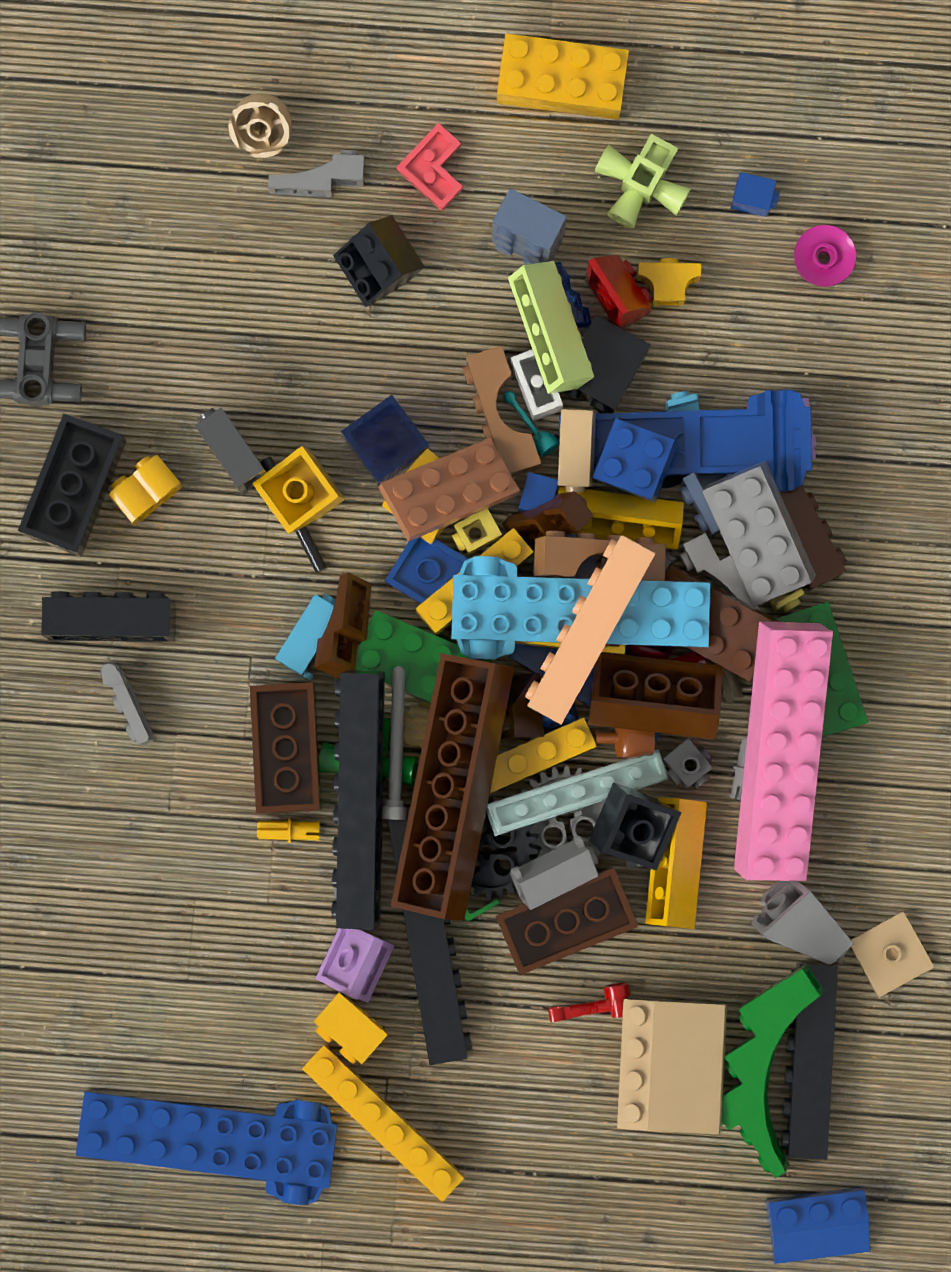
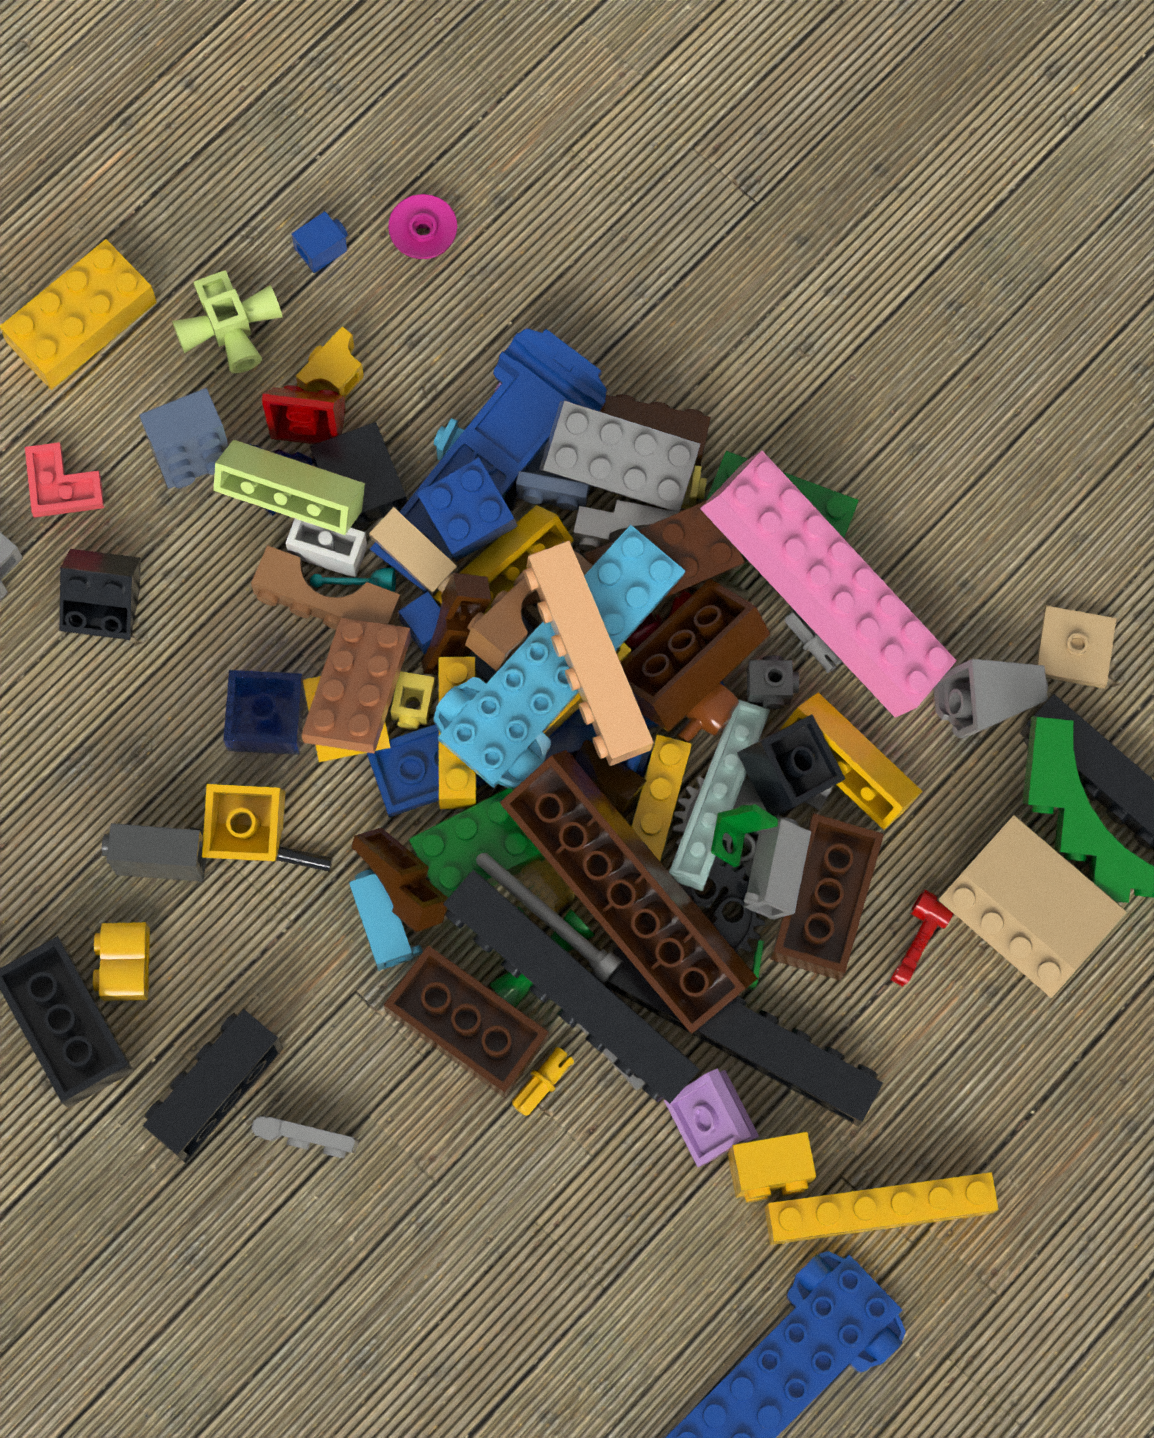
camera: 55 degrees left, 10 degrees down
(560, 823) = (736, 824): none -> green bracket

